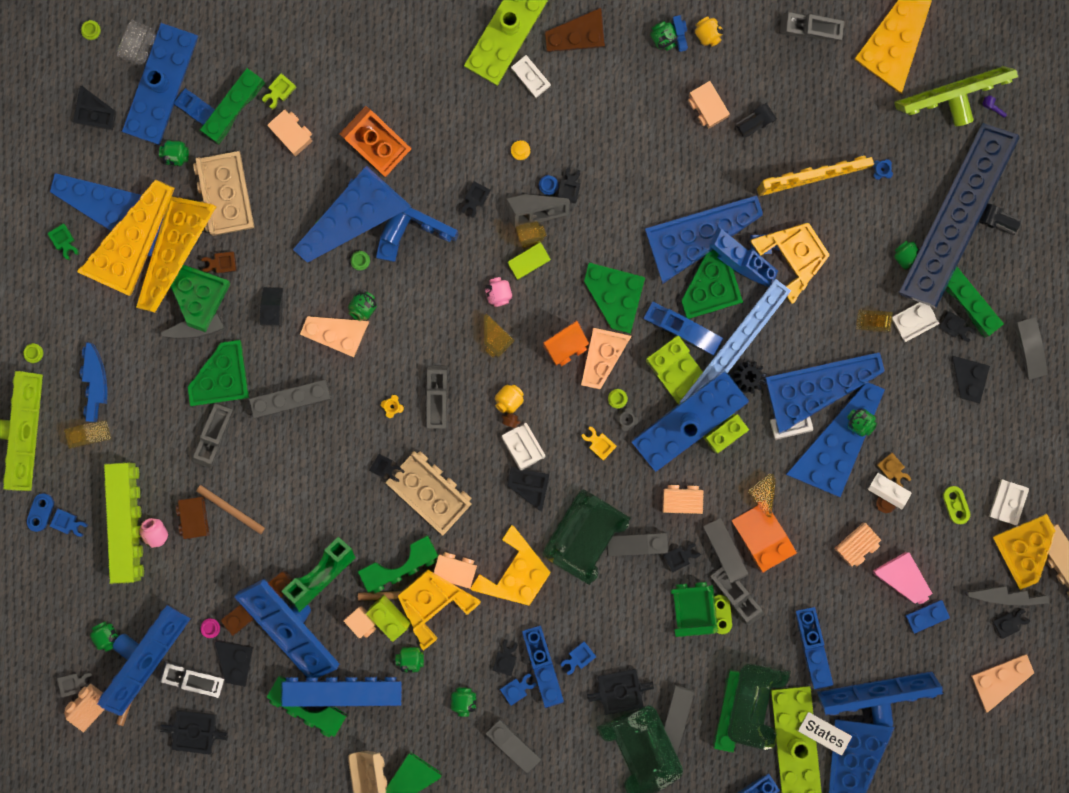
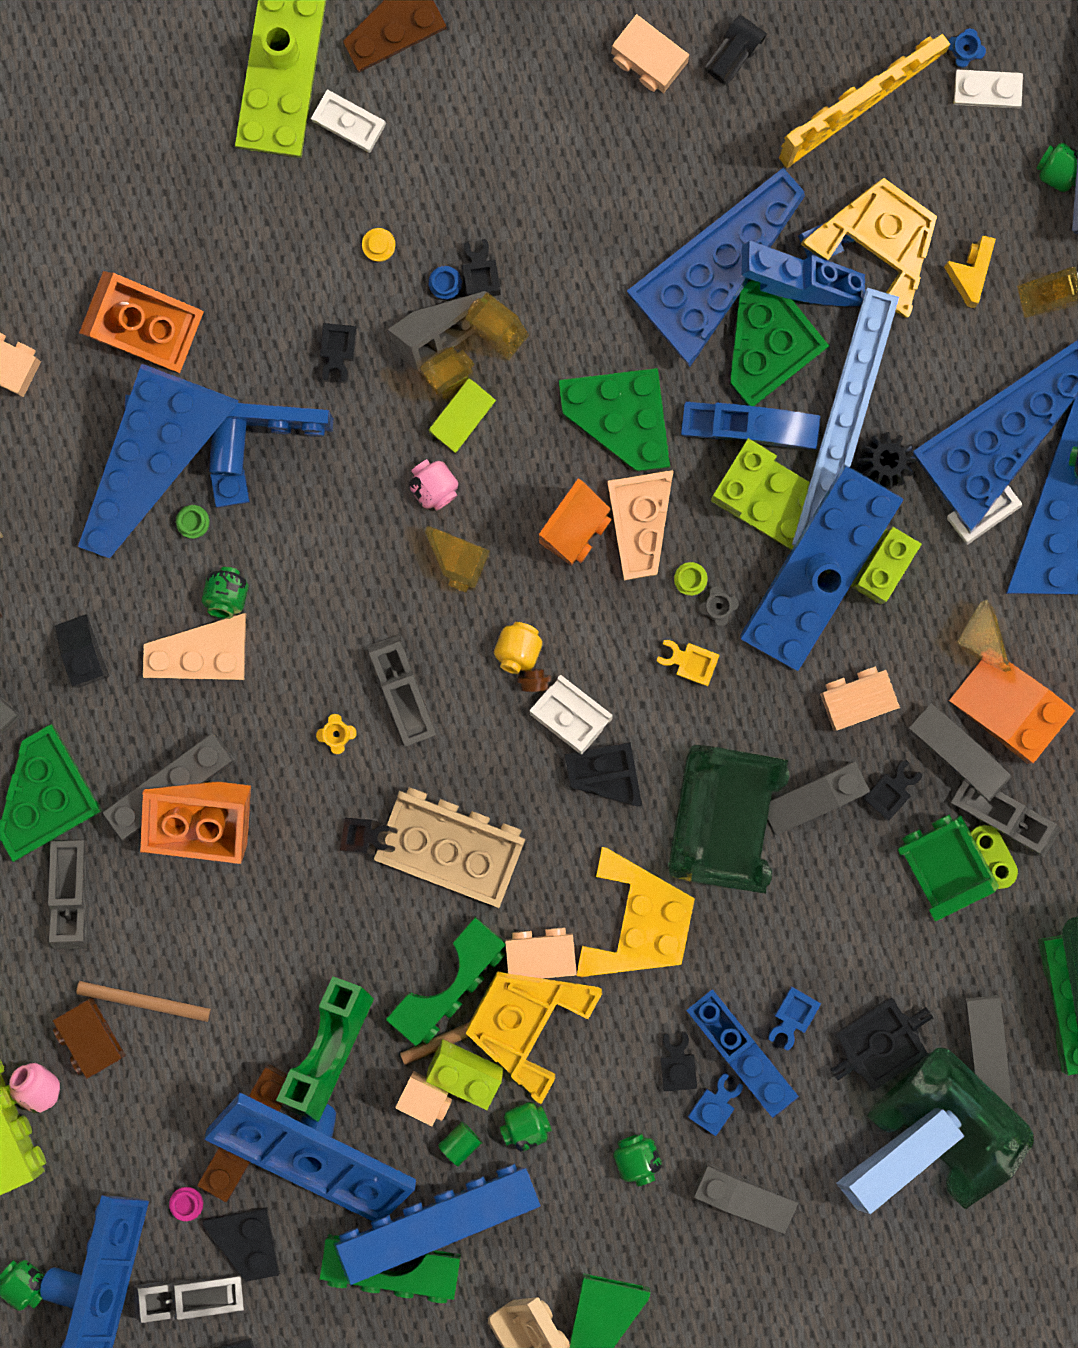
camera: 15 degrees left, 0 degrees up
(298, 424) = (197, 821): none -> orange slope
(371, 654) = (460, 1143): none -> green piece
(567, 220) = (497, 325): none -> clear yellow slope
(605, 758) = (900, 1160): none -> light blue slope
(834, 296) = (971, 279): none -> yellow slope
(885, 196) = (988, 89): none -> white plate

